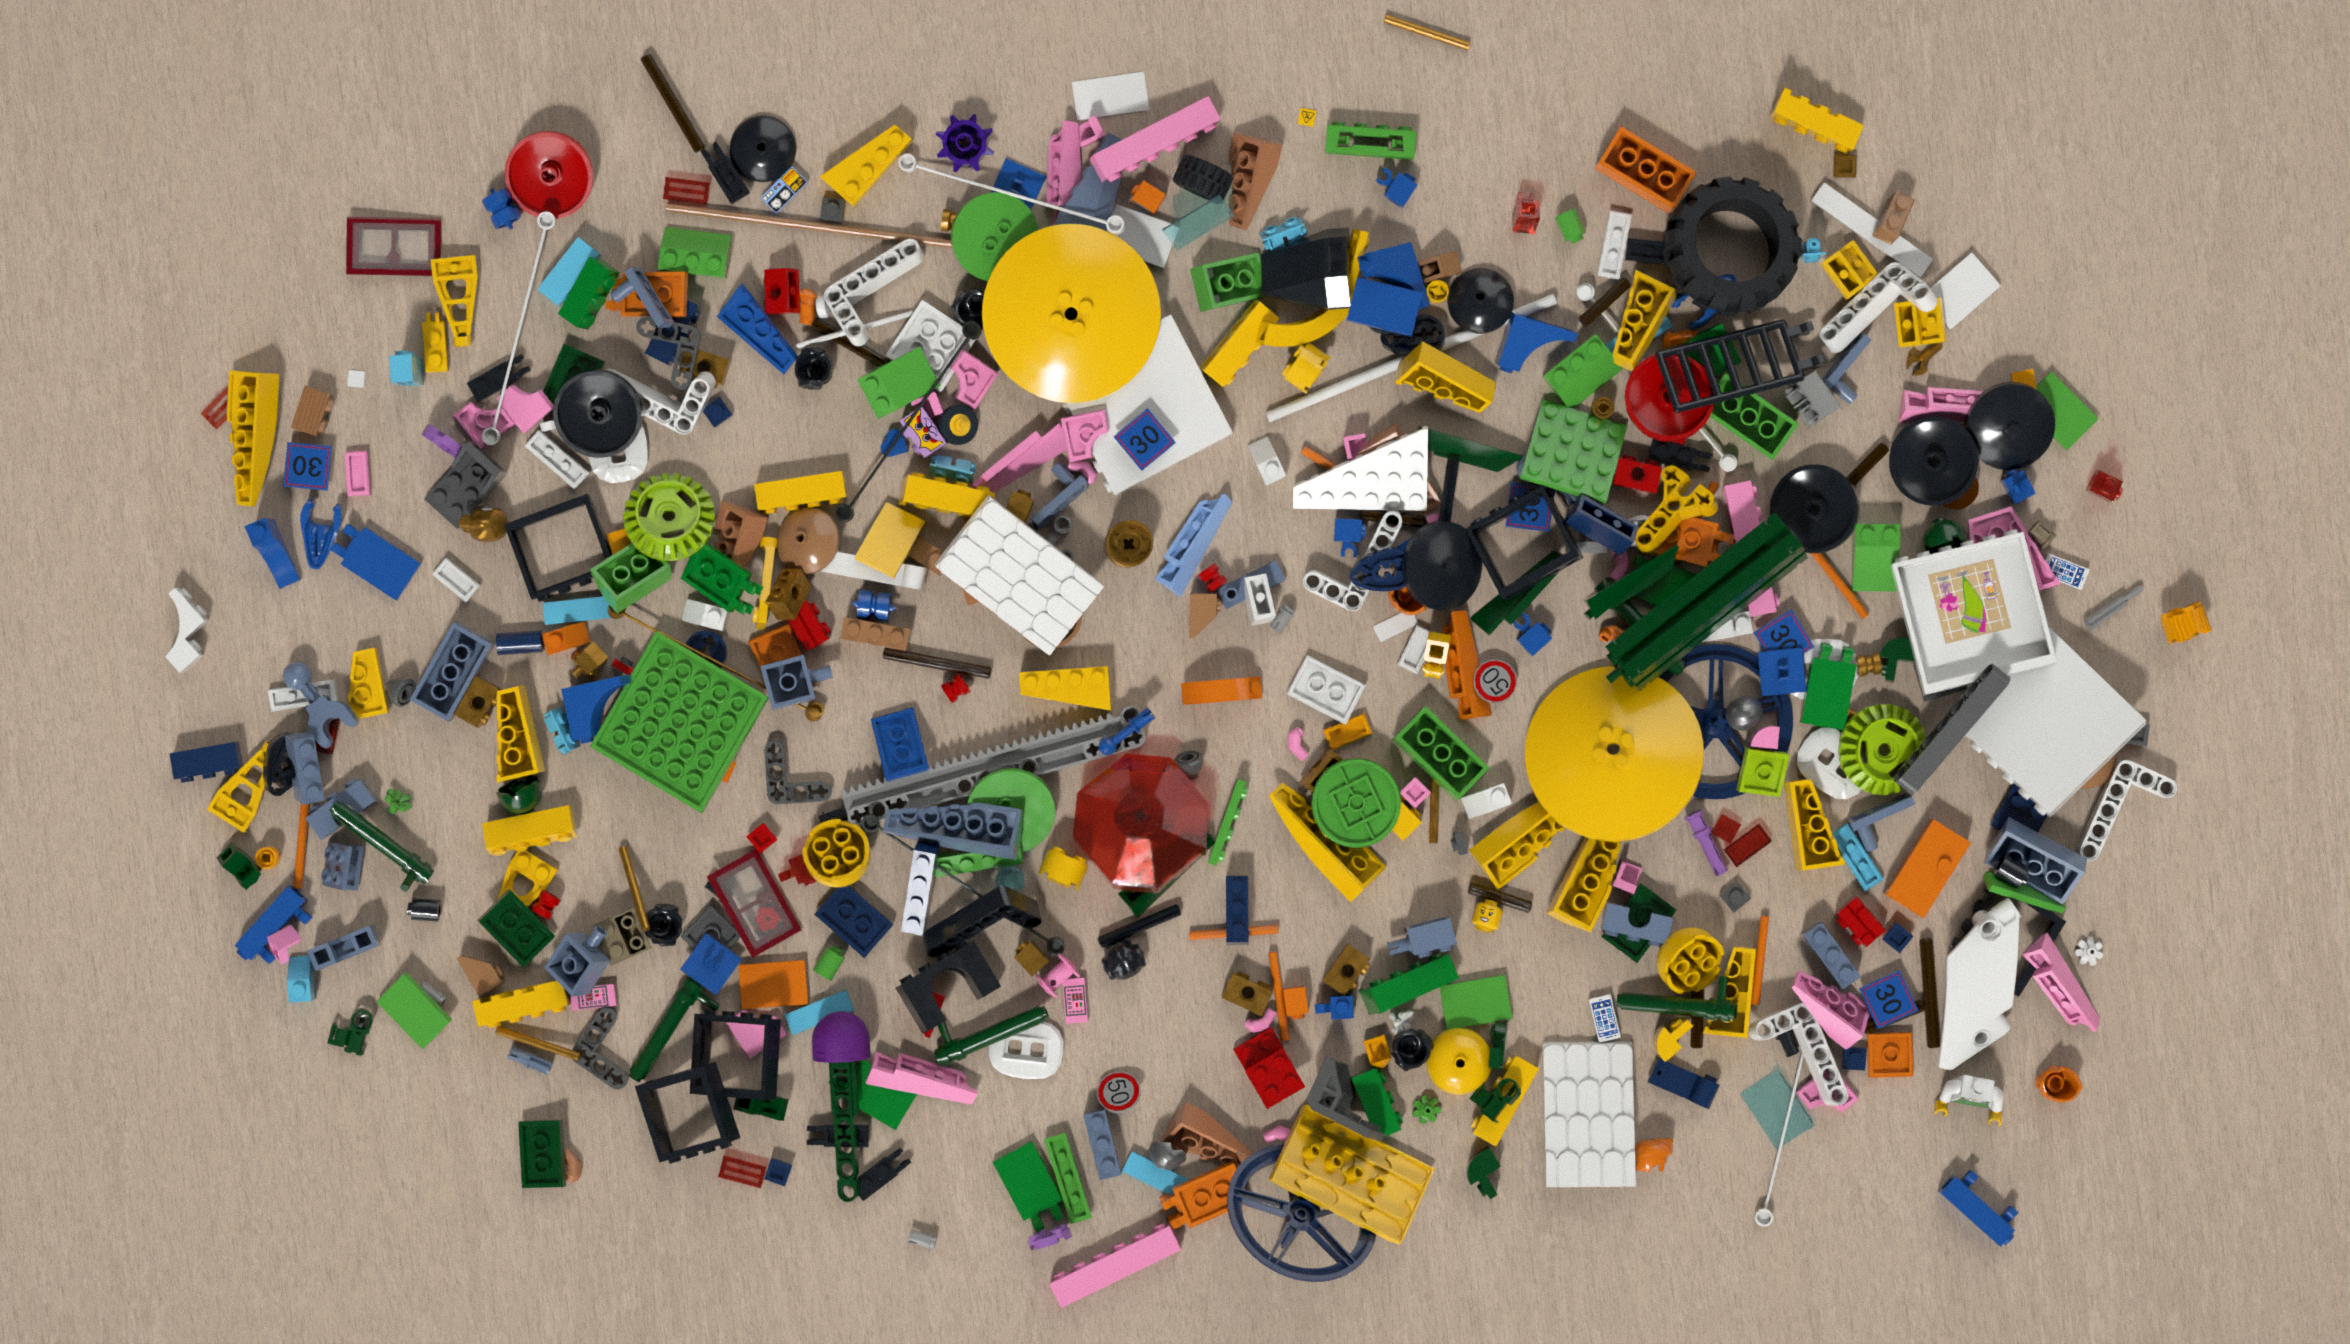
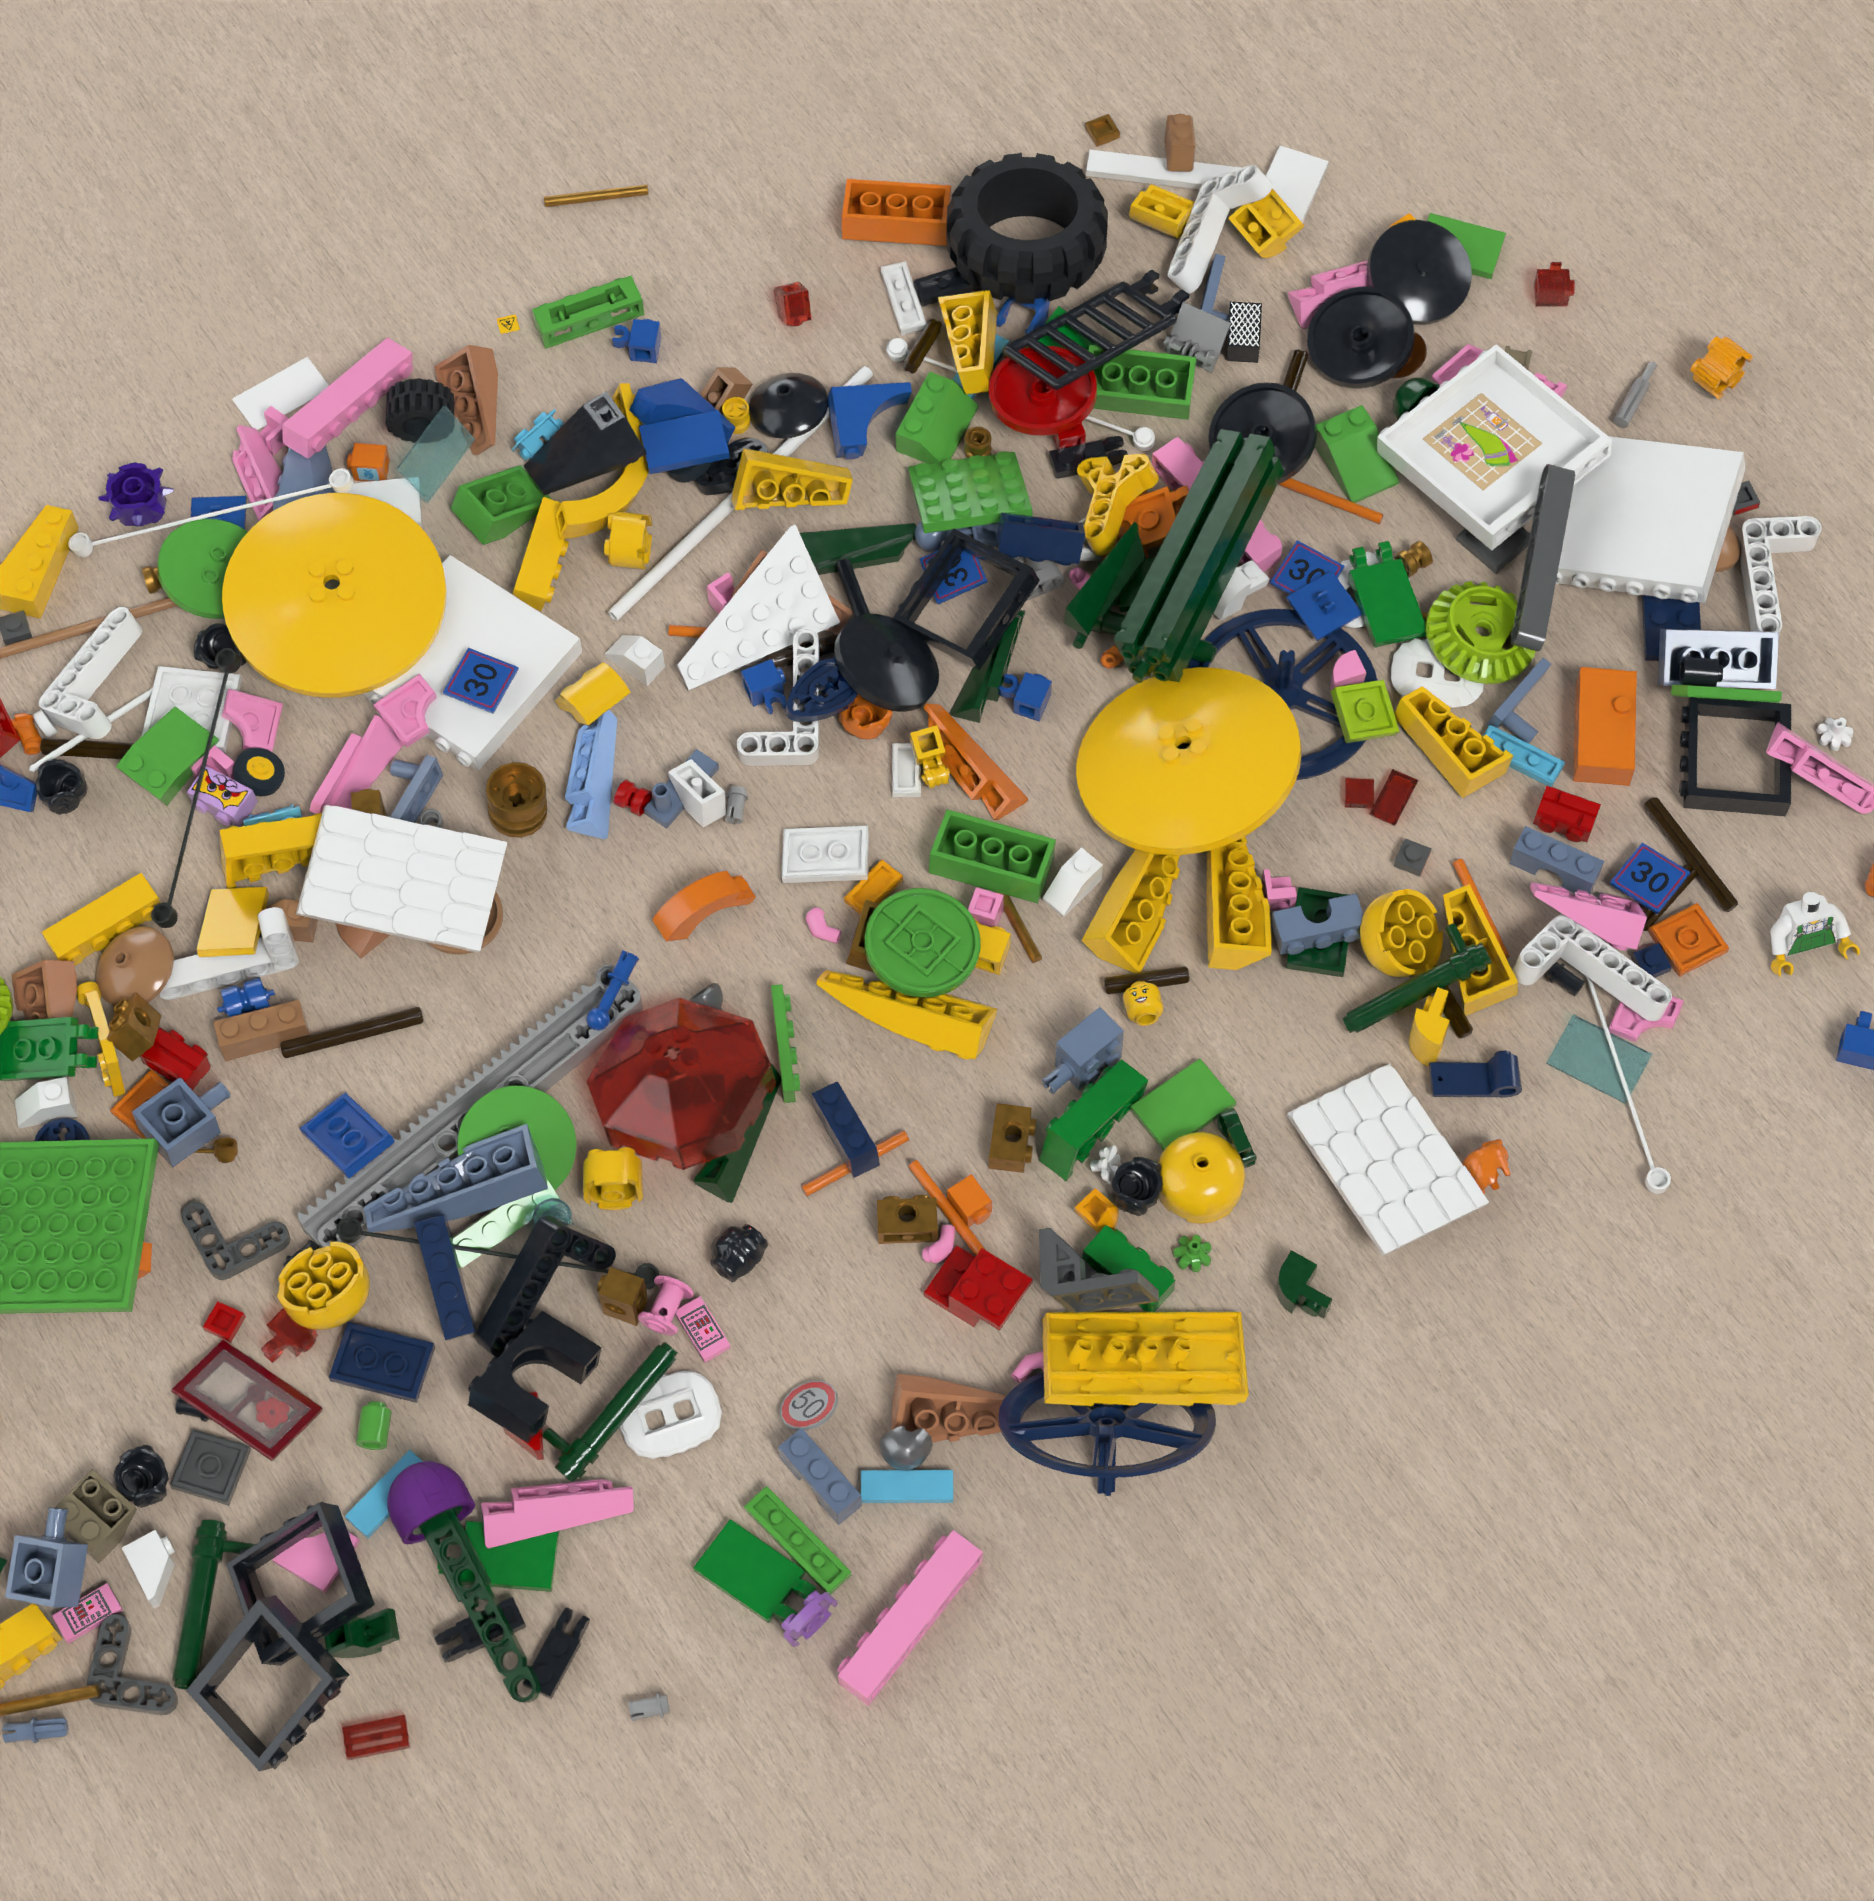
camera: 25 degrees left, 25 degrees down
(542, 1153) = (98, 1839): dark green plate -> none
(574, 1167) = (149, 1837): nougat arm -> none
(633, 885) = (85, 1450): pearl gold bar -> none
(646, 986) = (151, 1564): none -> white slope
(710, 964) = (222, 1496): blue piece -> none
(773, 984) = (321, 1477): orange tile -> none
(778, 1172) = (422, 1713): dark blue plate -> none
(899, 448) = (199, 828): blue tile -> none
(955, 688) = (386, 1047): red wheel -> none
(1074, 686) = (520, 981): yellow wedge -> none
(1085, 468) = (418, 756): bright pink arm -> none
(1139, 925) = (739, 1206): black axle -> none
(1200, 1197) = (979, 1479): orange tile -> none
(1202, 611) = (639, 836): medium nougat slope -> none
(1221, 482) = (593, 694): none -> yellow brick
(1339, 1006) = (1024, 1181): blue brick -> none
(1394, 626) = (868, 758): white sticker -> none
(1458, 843) = (1067, 941): dark grey plate -> none
(1491, 1102) = (1271, 1191): dark green piece -> none
(1495, 681) = (1012, 757): piece -> none
(1519, 1071) = (1278, 1193): yellow brick -> none
(1570, 226) = (846, 296): bright green brick -> none
(1604, 1018) = (1342, 1052): tile -> none
(1649, 481) = (1065, 497): red brick -> none
(1702, 833) = (1336, 806): medium lavender pin -> none
(1744, 712) = (1310, 662): flat silver hair -> none
(1811, 251) = (1116, 204): medium azure hinge -> none
(1816, 121) = (1046, 96): yellow wedge -> none
(1852, 408) = (1244, 332): none -> black panel
(1894, 651) = (1437, 532): dark green brick -> none
(1897, 937) = (1618, 812): dark blue plate -> none
(1925, 357) = (1290, 261): pearl gold bar -> none
(1980, 984) = (1742, 805): white panel -> none
(2017, 486) = (1463, 324): blue brick -> none
(2067, 572) = (1577, 383): tile -> none

